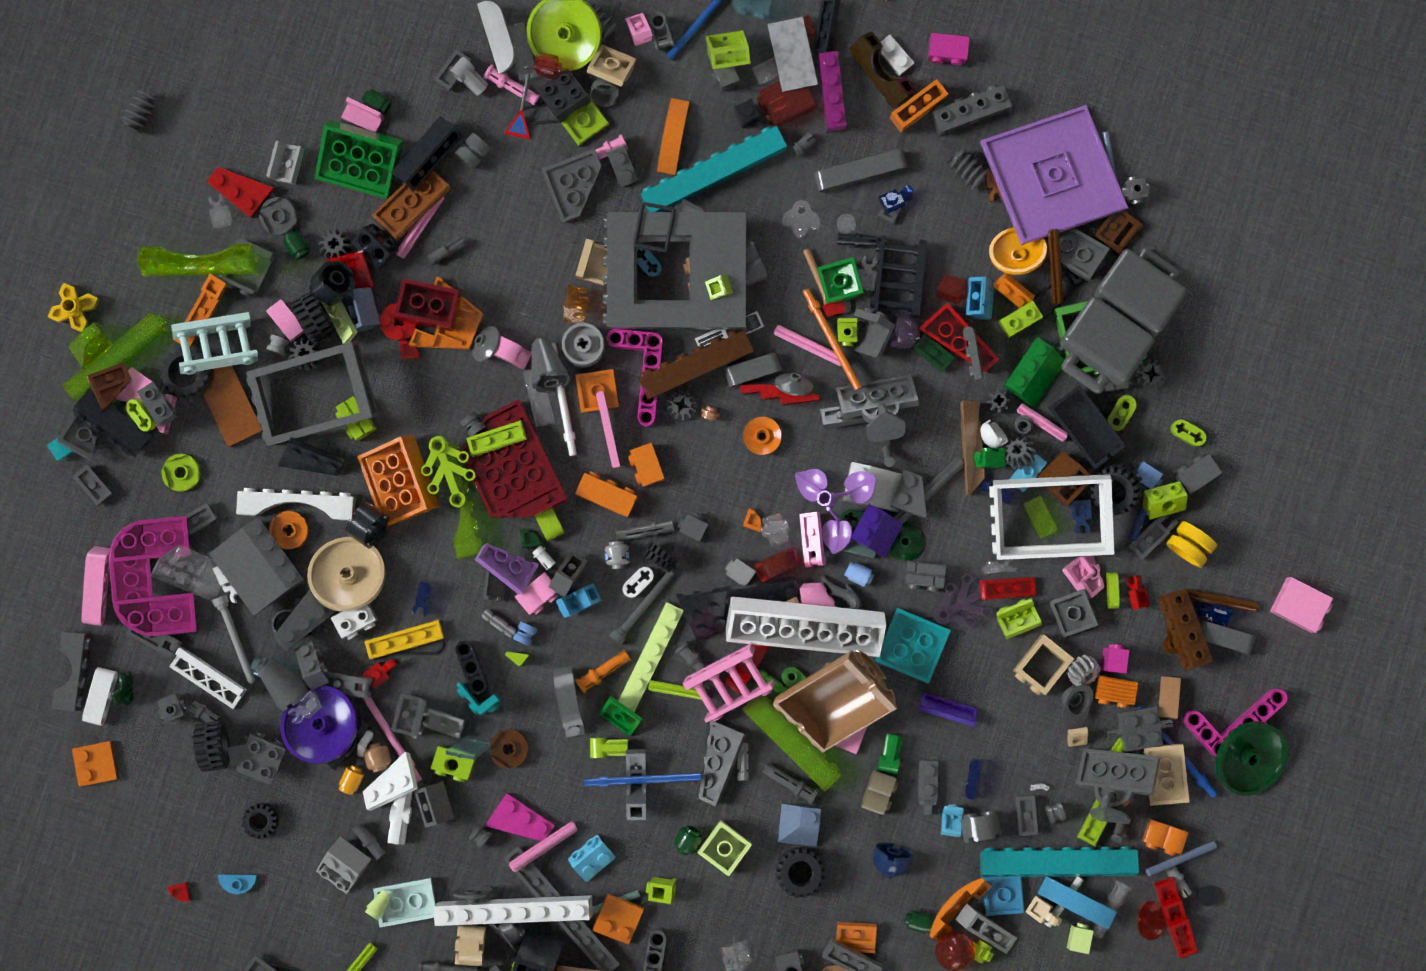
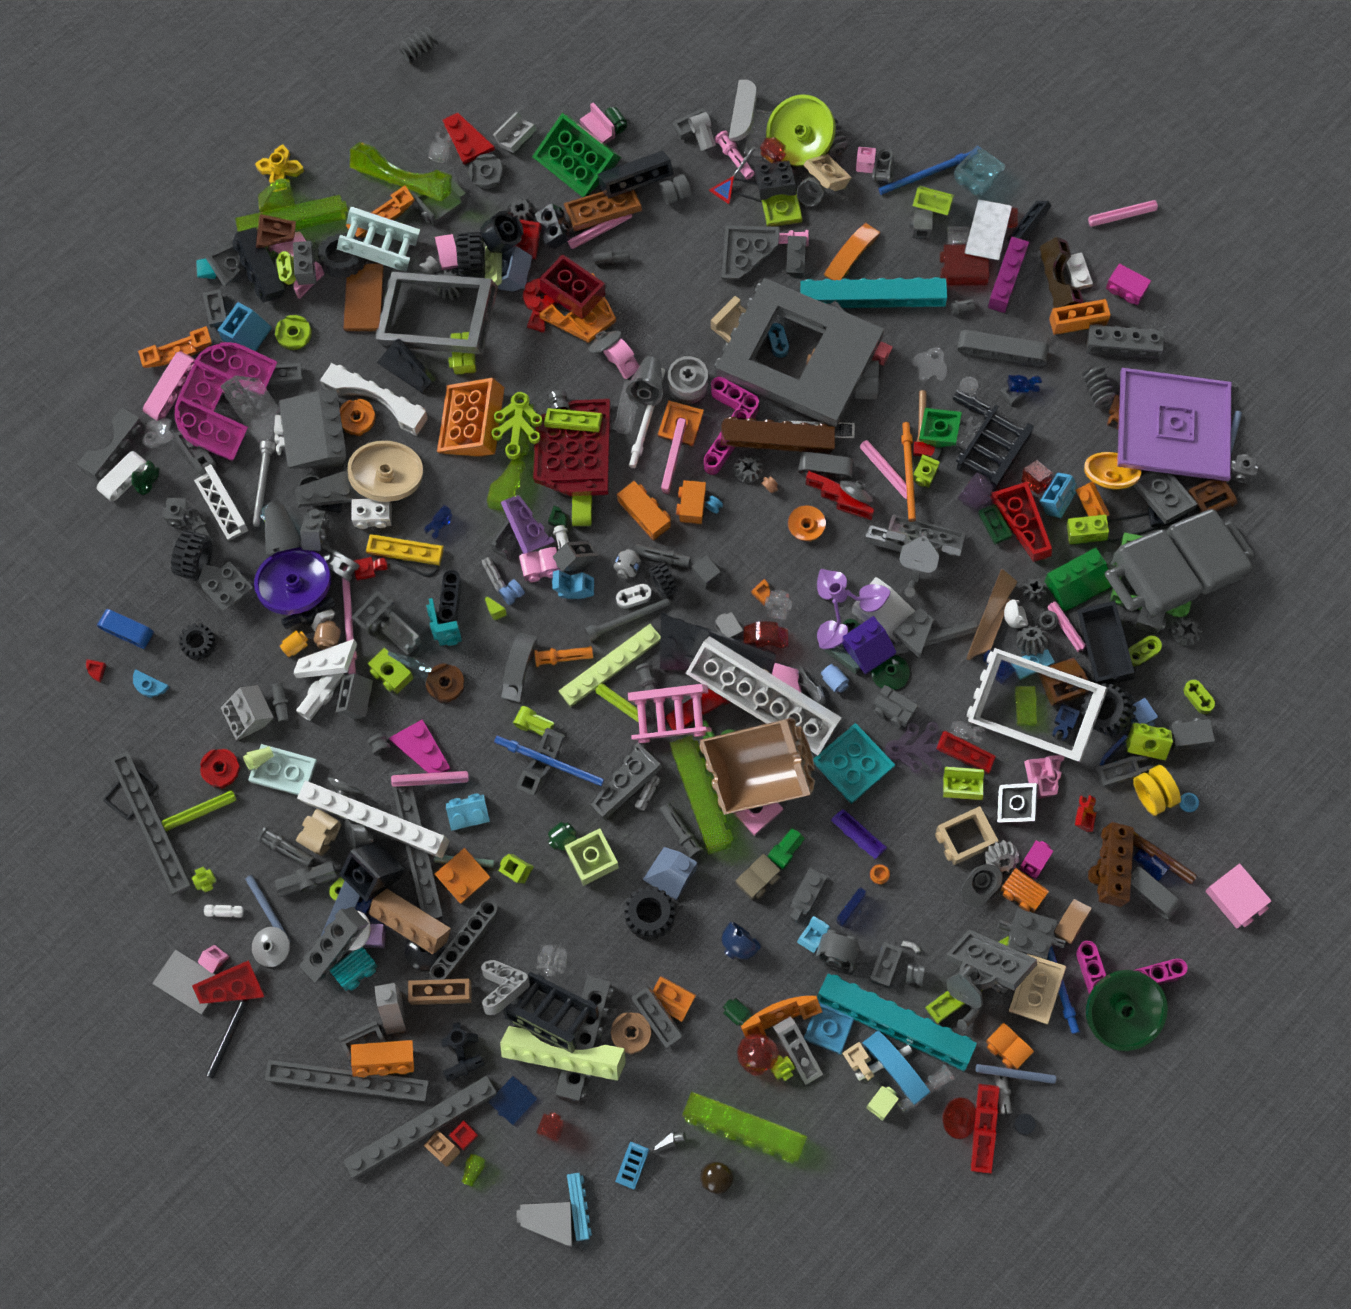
camera: 30 degrees right, 15 degrees down
(78, 546) = (191, 345): none -> orange slope
(95, 763) = (86, 530): orange plate -> none
(108, 635) = (157, 433): none -> clear plate
(134, 495) = (244, 327): none -> dark azure slope
(186, 841) = (125, 628): none -> blue beam
(296, 245) = (488, 198): dark green brick -> none
(306, 707) = (291, 558): clear plate -> none
(336, 932) = (219, 757): none -> red plate
(368, 525) = (425, 438): black brick -> none
(575, 306) = (695, 343): clear orange hinge -> none
(620, 716) = (558, 698): green slope -> none
(667, 458) = (713, 504): none -> dark azure bush
(669, 229) = (788, 295): black piece -> none
(719, 287) = (829, 376): lime slope -> none
(746, 113) = (925, 260): black brick -> none
(751, 228) = (882, 353): none -> coral panel
(812, 539) = (807, 629): plate -> none
(875, 333) = (955, 479): dark grey bracket -> none
(973, 352) = (1030, 531): dark grey hinge -> none
(982, 736) = (879, 874): none -> orange plate
(990, 458) = (1002, 632): green brick -> none
(1055, 266) = (1140, 497): reddish brown axle -> none
(1077, 737) = (968, 915): tan tile -> none
(1112, 590) = (1063, 800): lime beam -> none
(1222, 537) = (1189, 802): none -> dark azure plate

